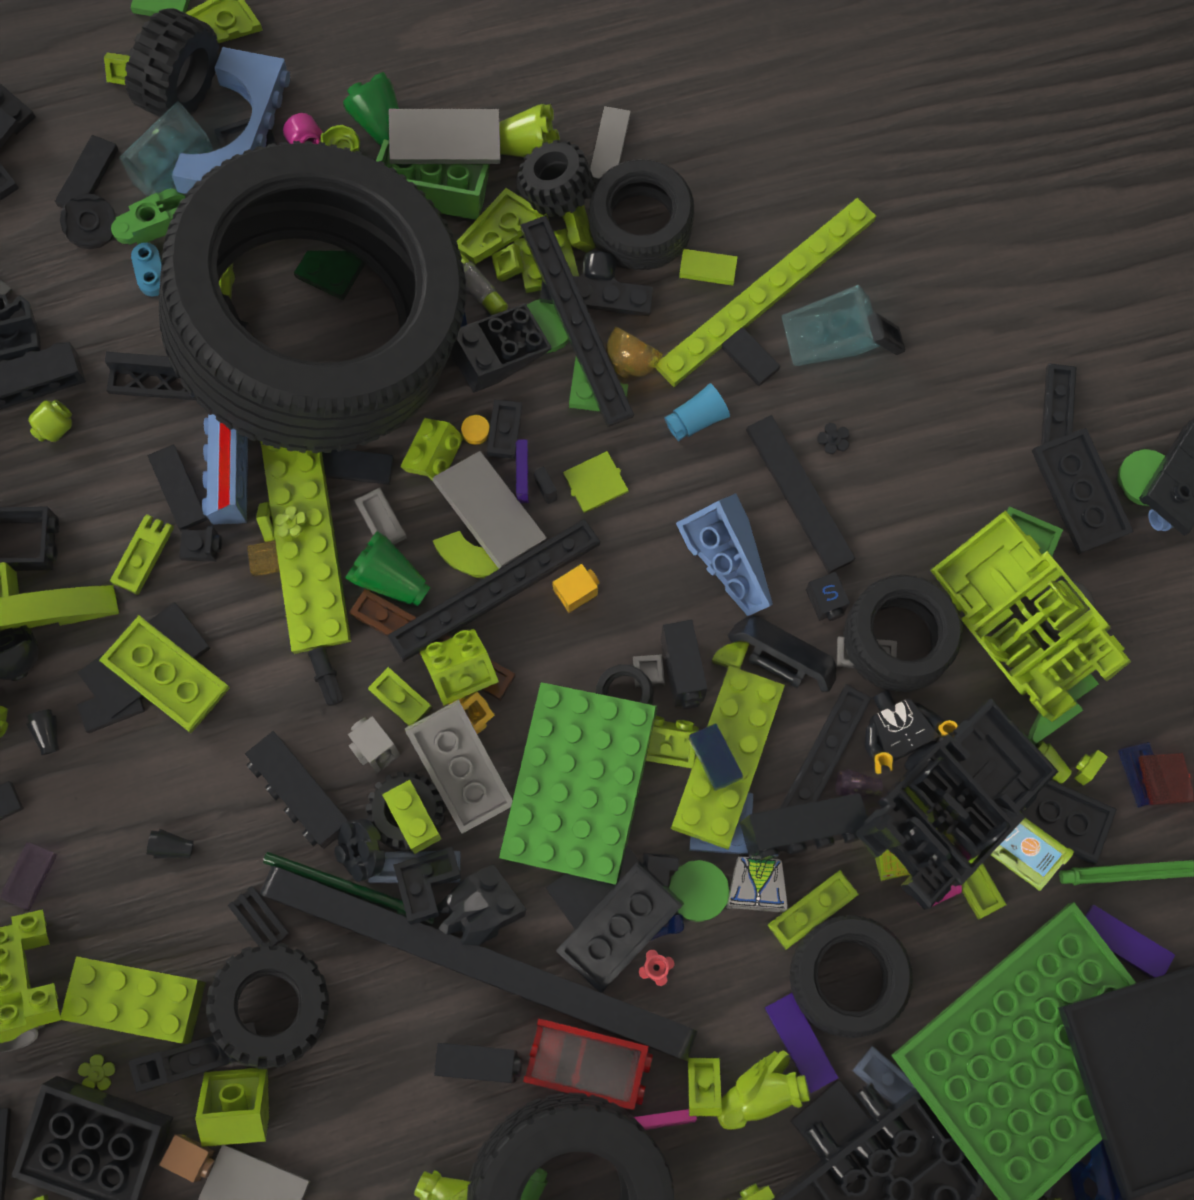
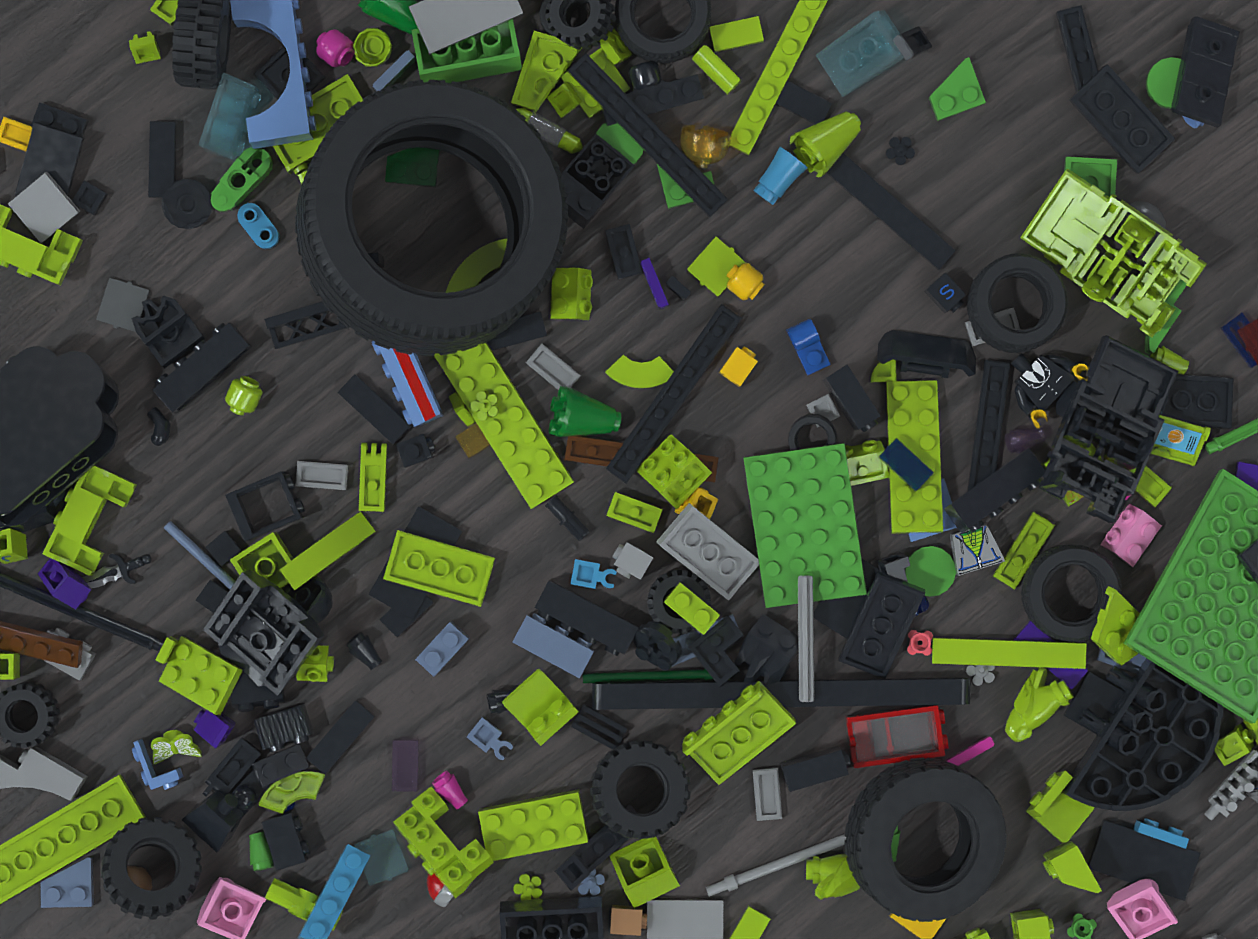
camera: 20 degrees left, 15 degrees up
(62, 922) = (449, 789): none -> dark pink cone
(91, 533) = (322, 475): none -> light grey tile
(127, 761) = (442, 648): none -> sand blue brick
(130, 878) = (486, 736): none -> sand blue plate
(169, 1097) = (591, 882): none -> sand blue plant
(201, 865) = (540, 706): none -> lime bracket
(249, 806) = (554, 645): none -> sand blue brick
(322, 744) = (588, 574): none -> dark azure plate
(328, 1163) = (731, 882): none -> light grey bar
(407, 985) = (738, 732): none -> lime bracket
(413, 1074) = (767, 794): none -> light grey tile
(475, 429) = (599, 261): yellow tile -> none
(489, 509) = (640, 327): light grey tile -> none
(527, 907) = (806, 638): none -> light grey axle
(618, 503) = (745, 281): none -> yellow head
(658, 596) = (808, 346): none -> blue plate
(674, 289) = (716, 69): none -> lime brick
(704, 1087) = (991, 717): lime plate -> none
(714, 1029) = (980, 672): none -> light grey plant
(727, 546) = (846, 280): medium blue wedge -> none
(754, 1020) = (1009, 653): none -> lime tile
(758, 396) = (825, 142): none -> lime cone
(886, 1032) = (1114, 626): none -> lime wing
(915, 404) = (957, 93): none -> bright green wing
(942, 939) = (1131, 534): none -> bright pink bracket
(1089, 766) = (1201, 352): lime plate -> none

